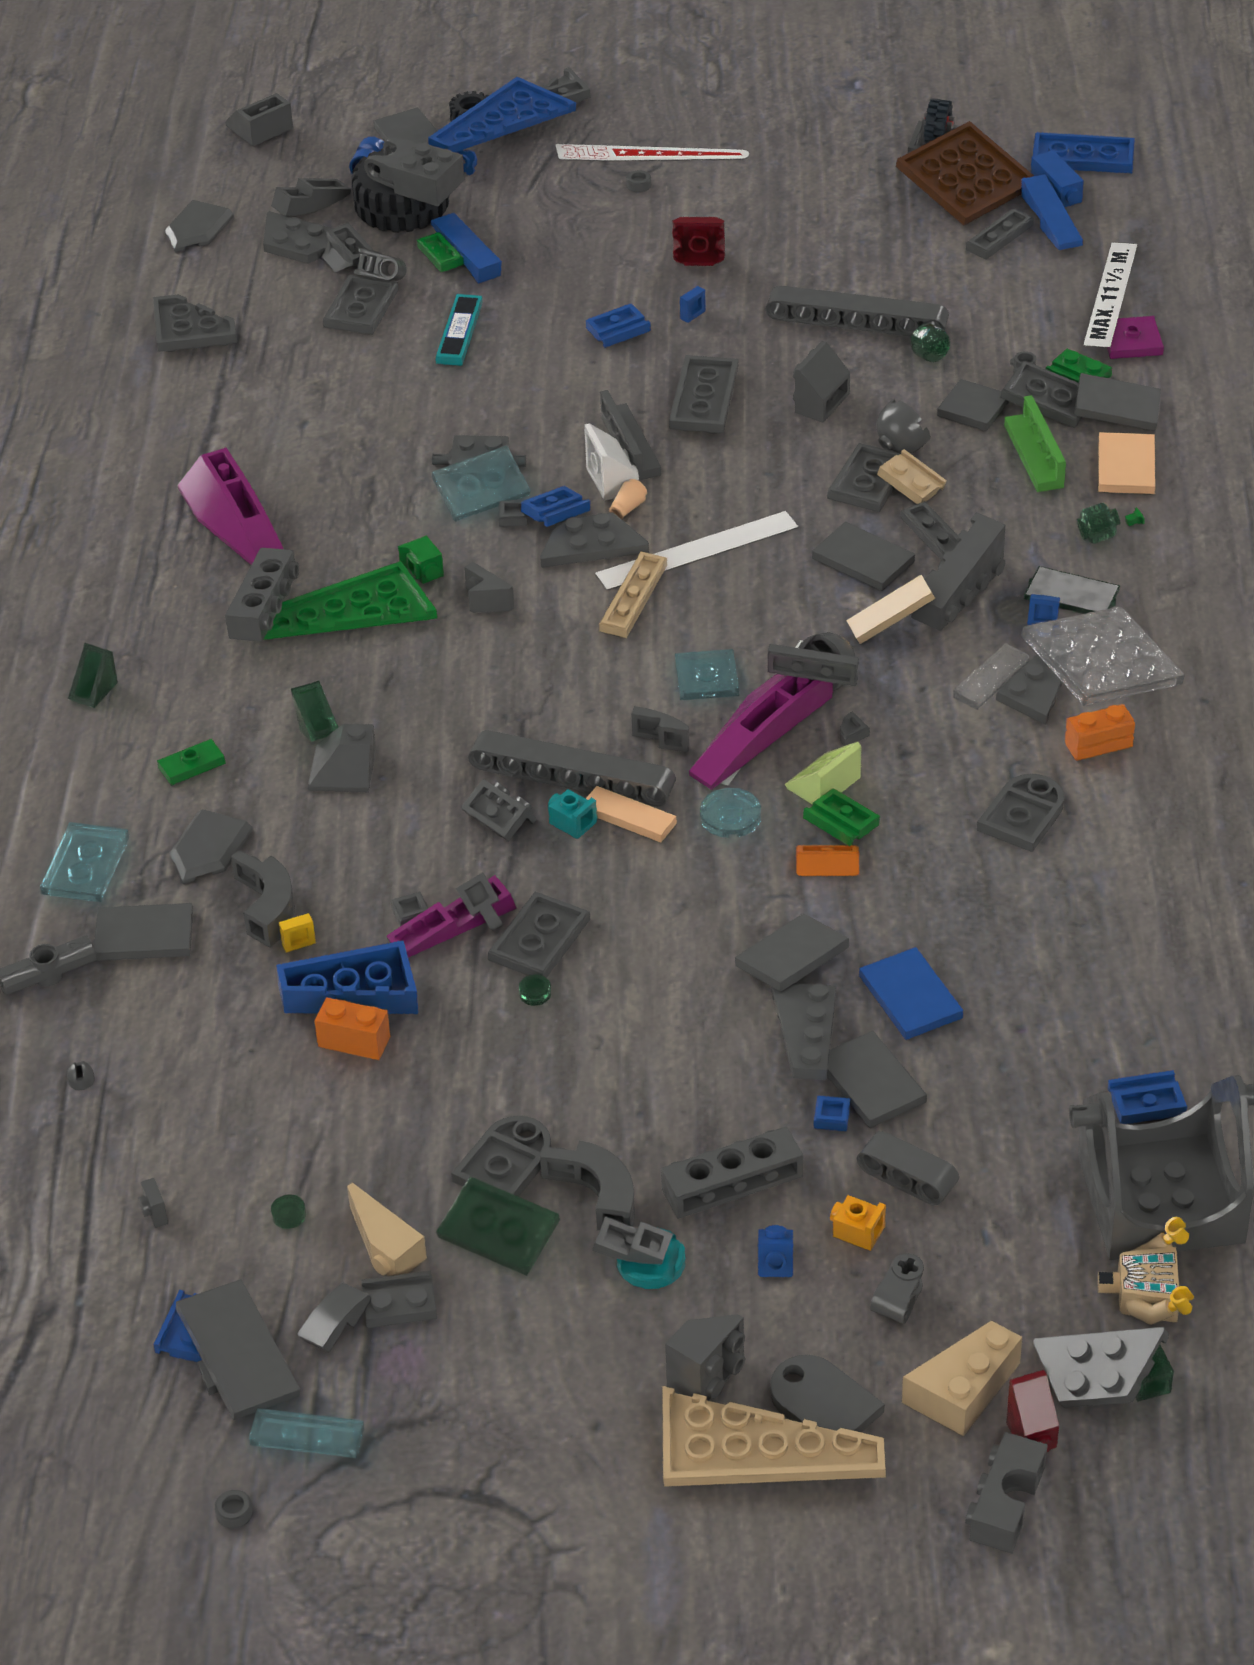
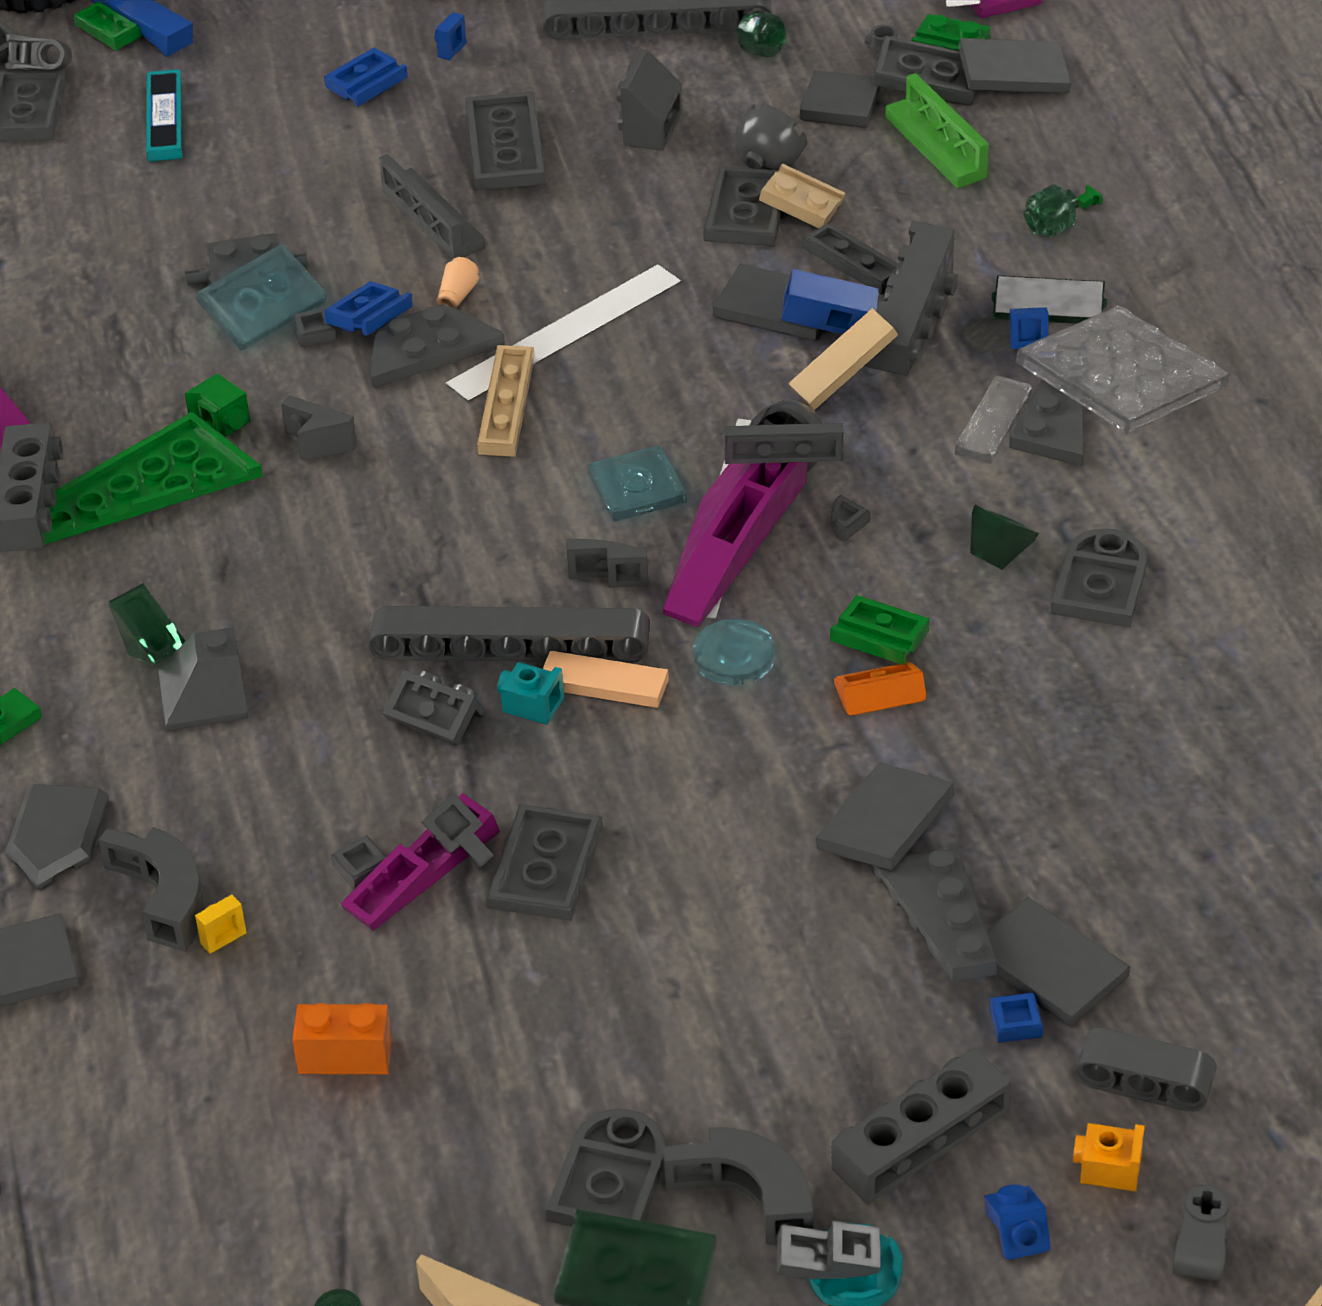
camera: 15 degrees left, 0 degrees up
(364, 976) = (340, 964): blue wedge -> none
(534, 990) = (565, 935): clear green tile -> none
(607, 462) = (416, 244): white slope -> none
(832, 770) = (840, 577): yellowish green slope -> none
(893, 562) = (826, 301): none -> blue brick
(911, 993) = (1054, 838): blue tile -> none
(957, 765) = (998, 537): none -> clear green slope
(1099, 732) = (1158, 462): orange brick -> none
(1126, 463) = (1052, 135): light nougat tile -> none

